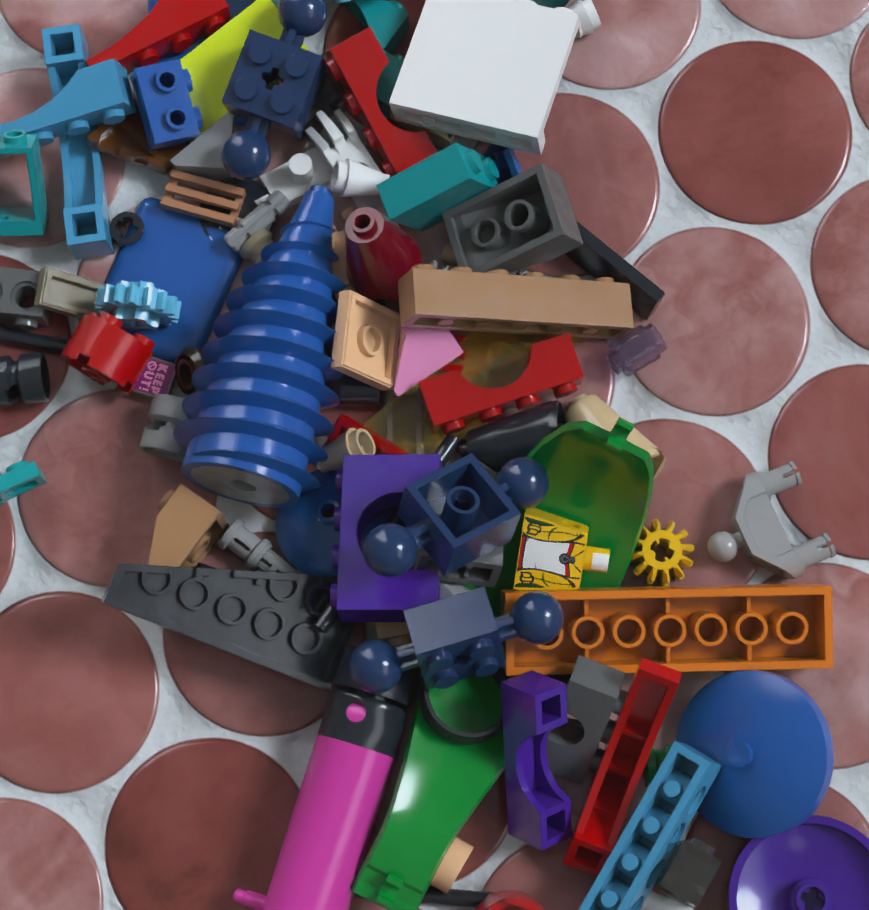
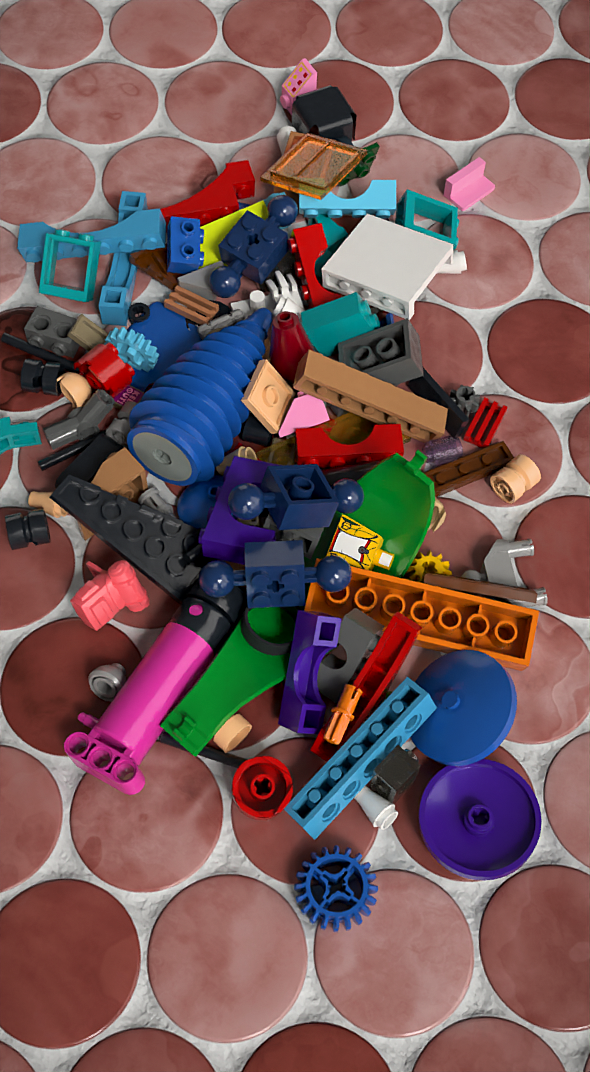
camera: 10 degrees right, 15 degrees down
(70, 634) = (27, 529): none -> black wheel
(74, 388) = (75, 388): none -> light nougat hair
(87, 579) = (41, 500): none -> light nougat cone
(96, 440) = (81, 421): none -> dark grey piece
(98, 483) = (67, 452): none -> black bar
(133, 508) = (91, 459): none -> black beam
(220, 707) = (108, 594): none -> coral piece
(259, 831) = (107, 680): none -> light grey brick
(598, 815) = (342, 714): none -> orange axle
(652, 249) = (466, 399): none -> dark grey gear
(675, 368) = (469, 468): none -> reddish brown tile
(693, 254) = (492, 407): none -> red tile
(739, 567) = (479, 586): none -> reddish brown tile
(753, 366) = (515, 478): none -> light nougat wheel

